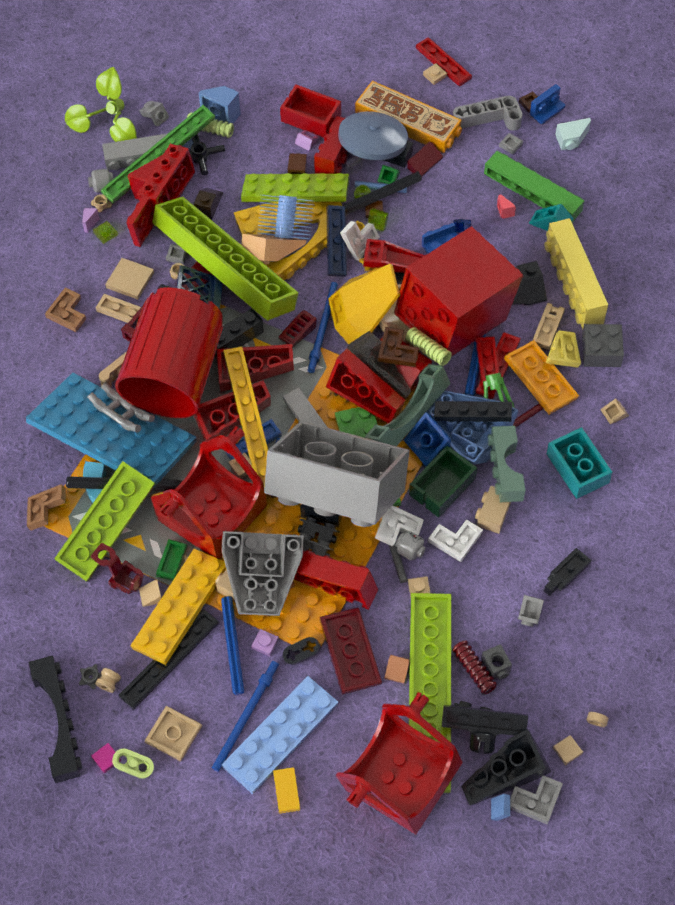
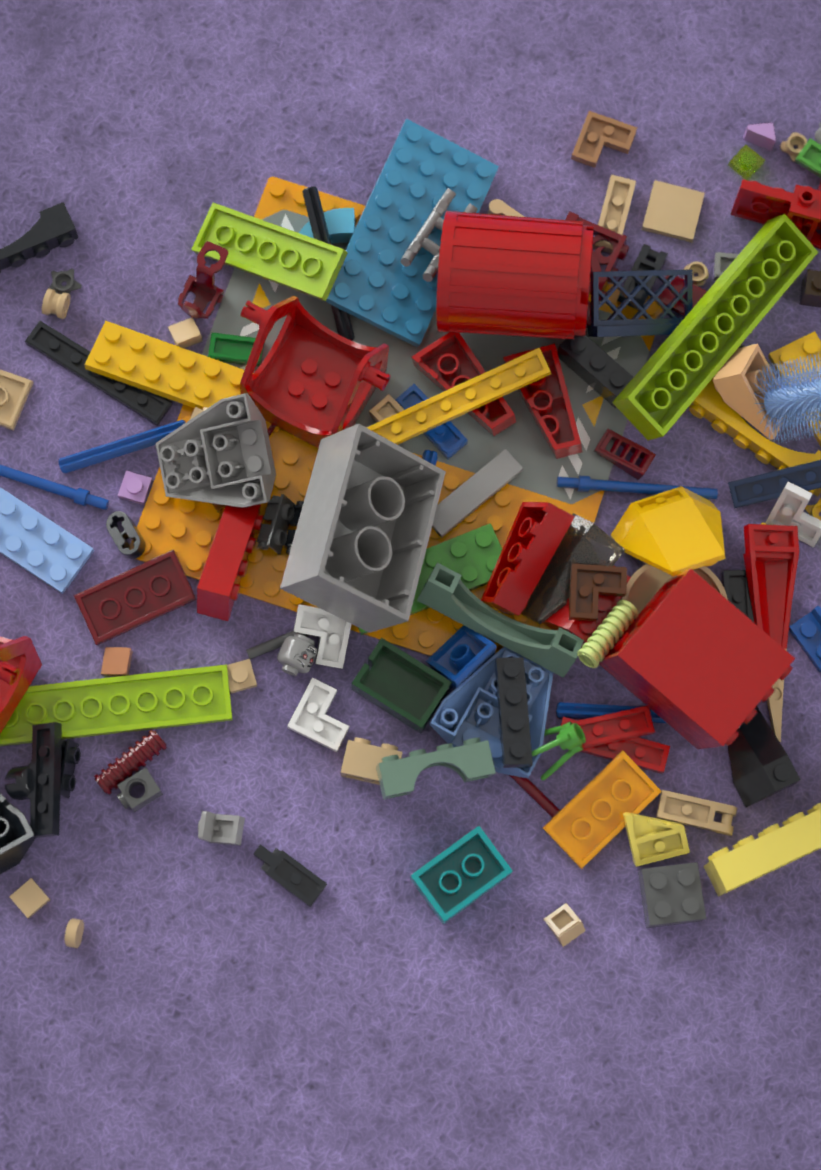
camera: 75 degrees right, 15 degrees up
(40, 504) = (288, 168): medium nougat plate -> none

